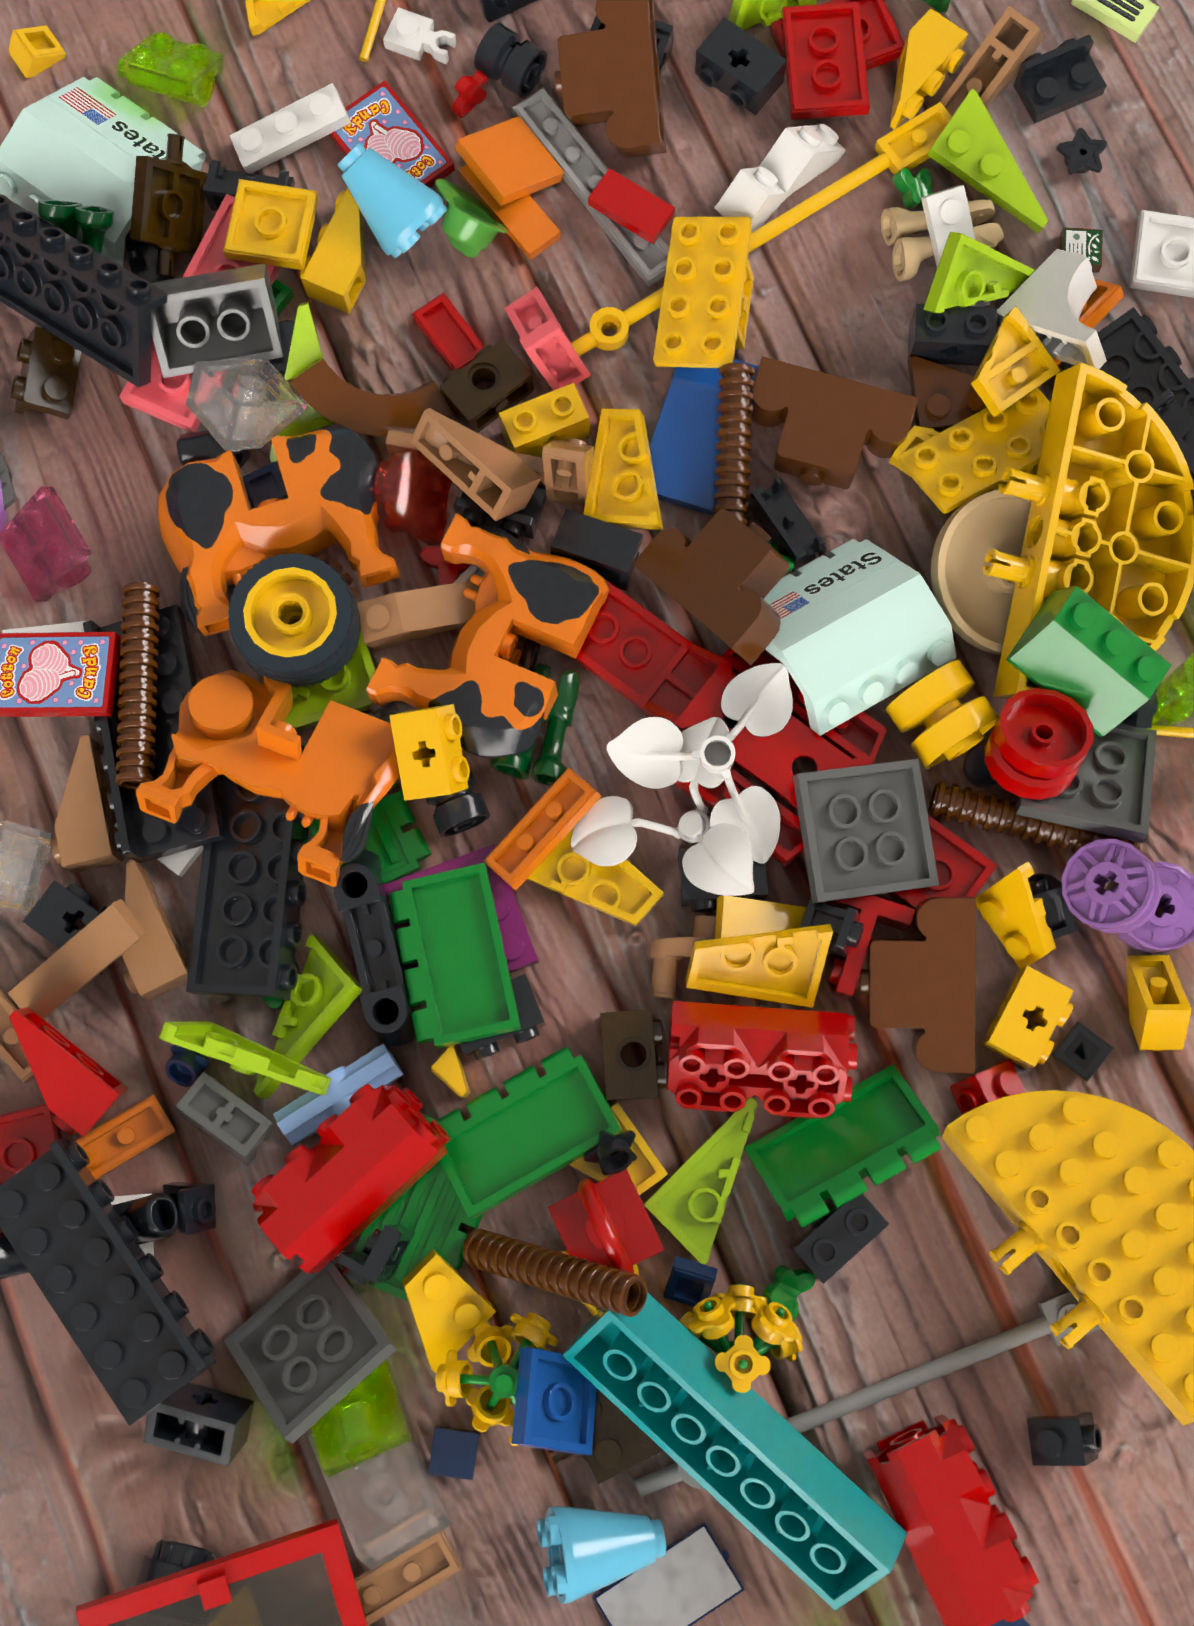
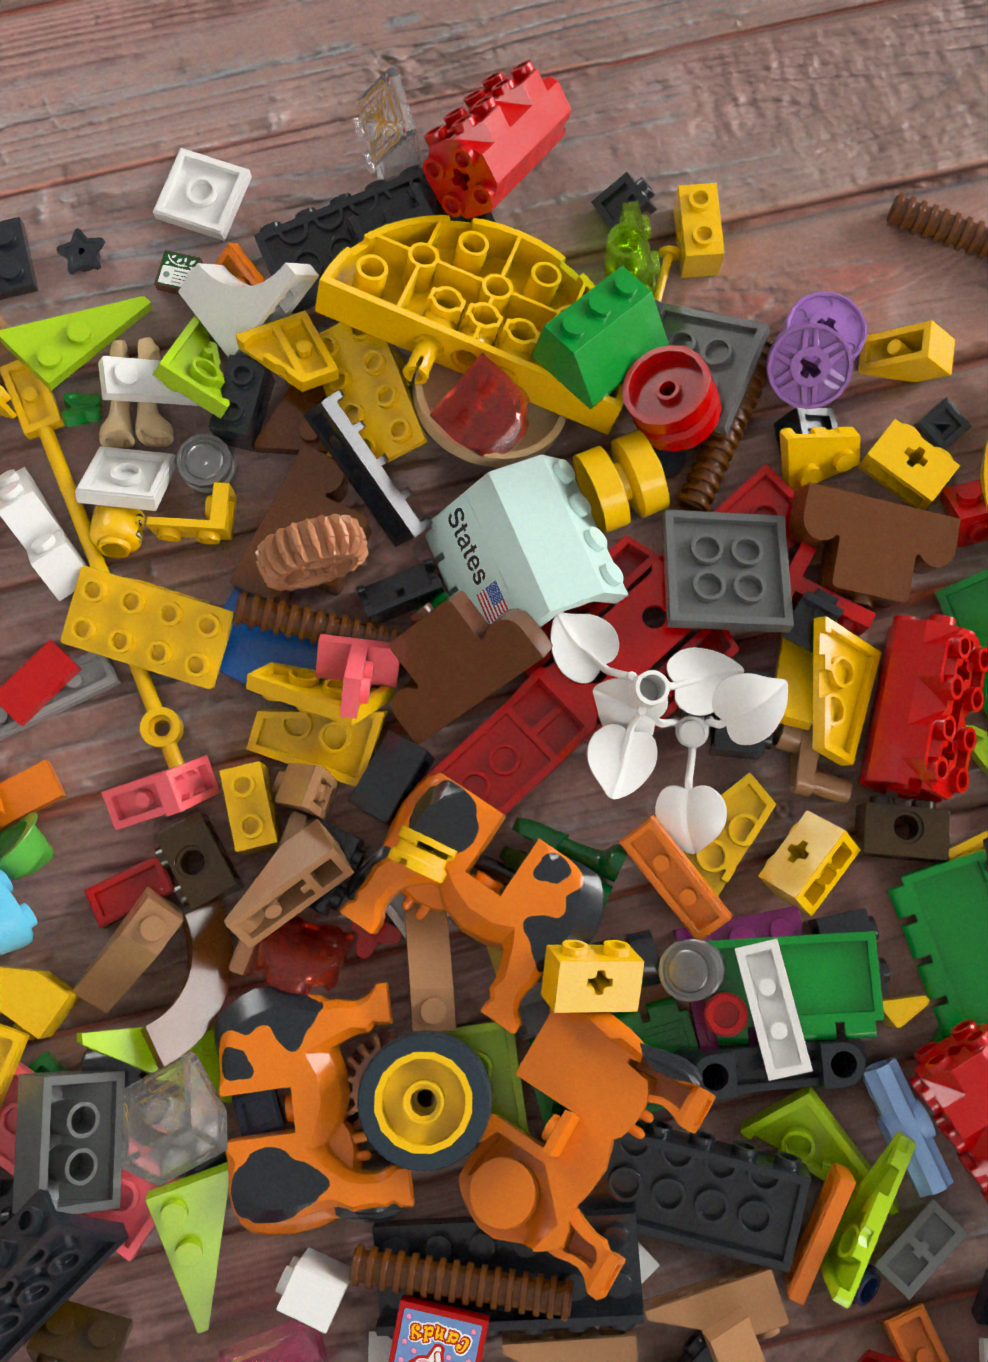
camera: 80 degrees left, 0 degrees up
(114, 557) = (313, 1289): none -> white brick
(155, 442) = (190, 1226): none -> lime wing
(227, 1015) = (819, 1232): none -> orange tile
(395, 342) = (129, 950): none -> medium nougat slope
(417, 893) = (725, 1014): none -> red tile
(427, 934) = (773, 1010): none -> white plate
(454, 853) = (692, 970): none -> flat silver wheel
(519, 570) = (419, 858): none -> yellow wheel
(580, 962) = (809, 862): none -> yellow brick
(661, 467) = (311, 694): none -> yellow wing
(695, 482) = (358, 665): none -> coral bracket
(799, 245) = (117, 530): none -> yellow head
(800, 418) = (311, 552): none -> nougat gear
(828, 340) = (220, 511): none -> yellow bracket
(850, 242) = (126, 478): none -> white tile
(881, 315) = (205, 461): none -> flat silver wheel
(900, 460) = (365, 471): none -> black hinge
(982, 553) = (484, 409): none -> clear red slope

